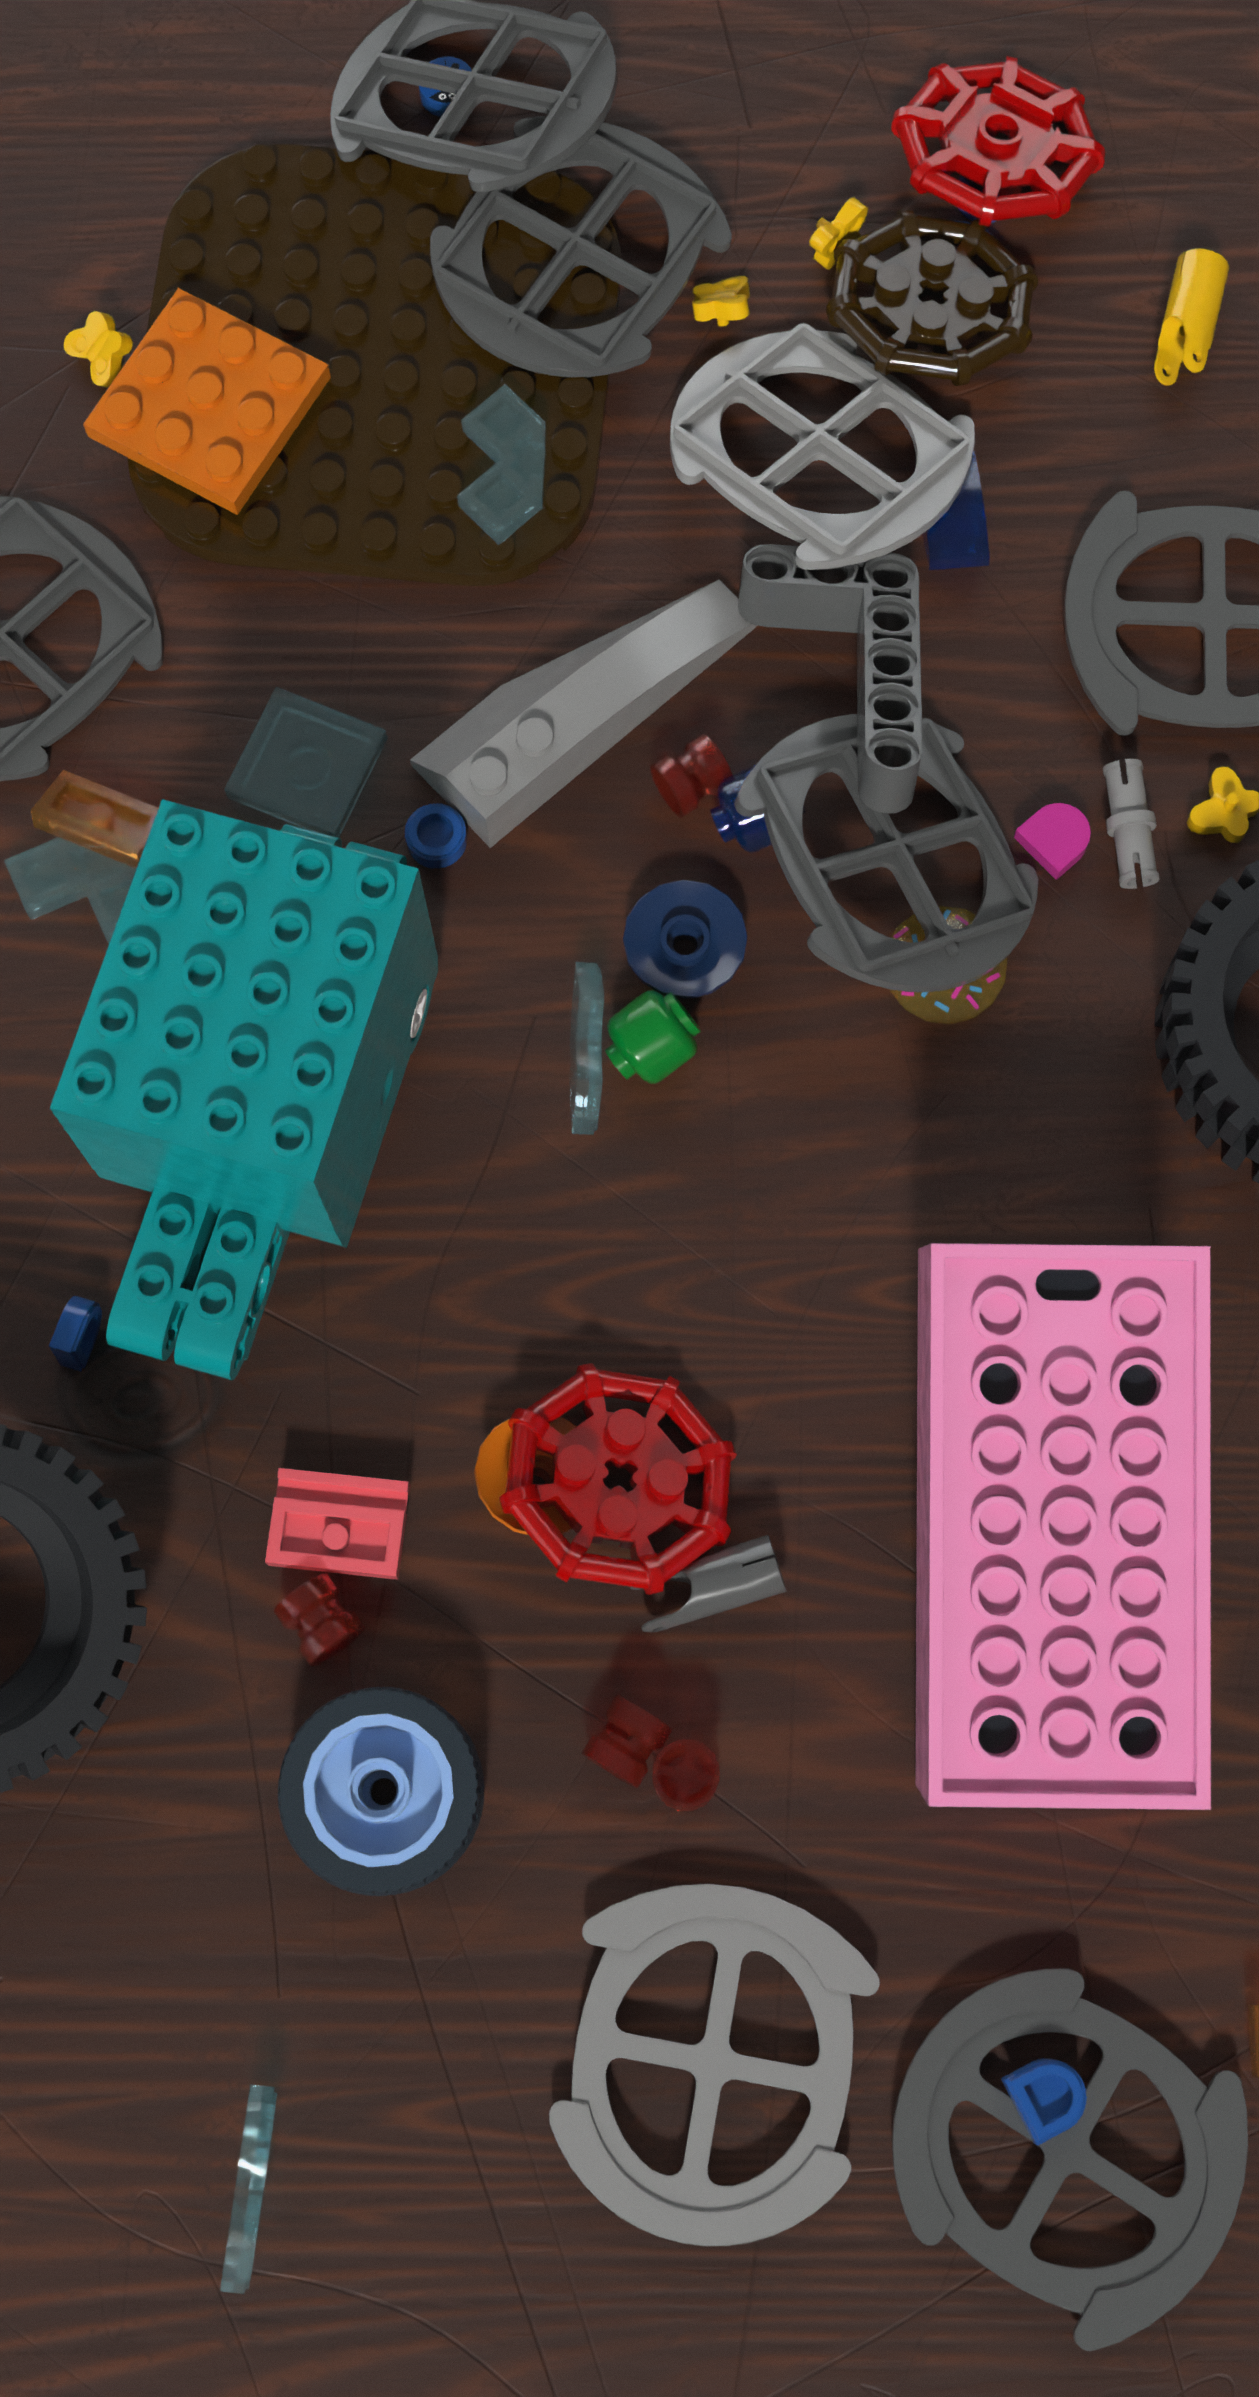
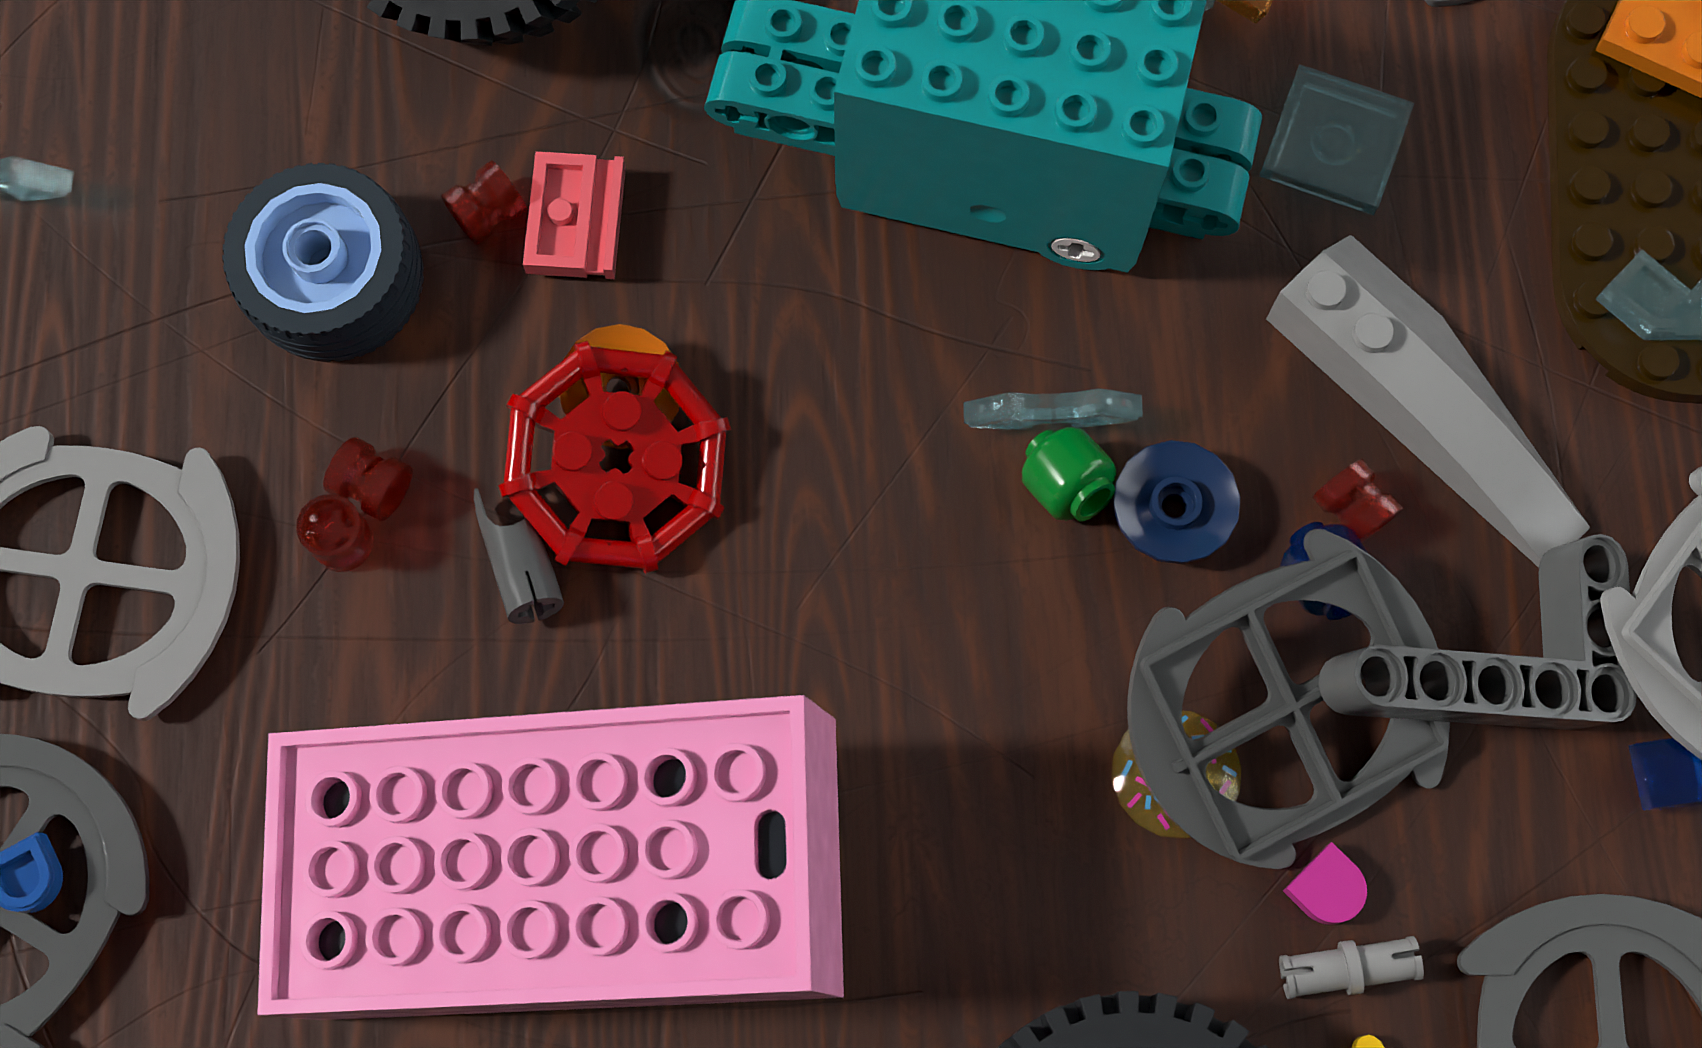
camera: 85 degrees right, 0 degrees up
(436, 835) = (1271, 263): blue tile -> none

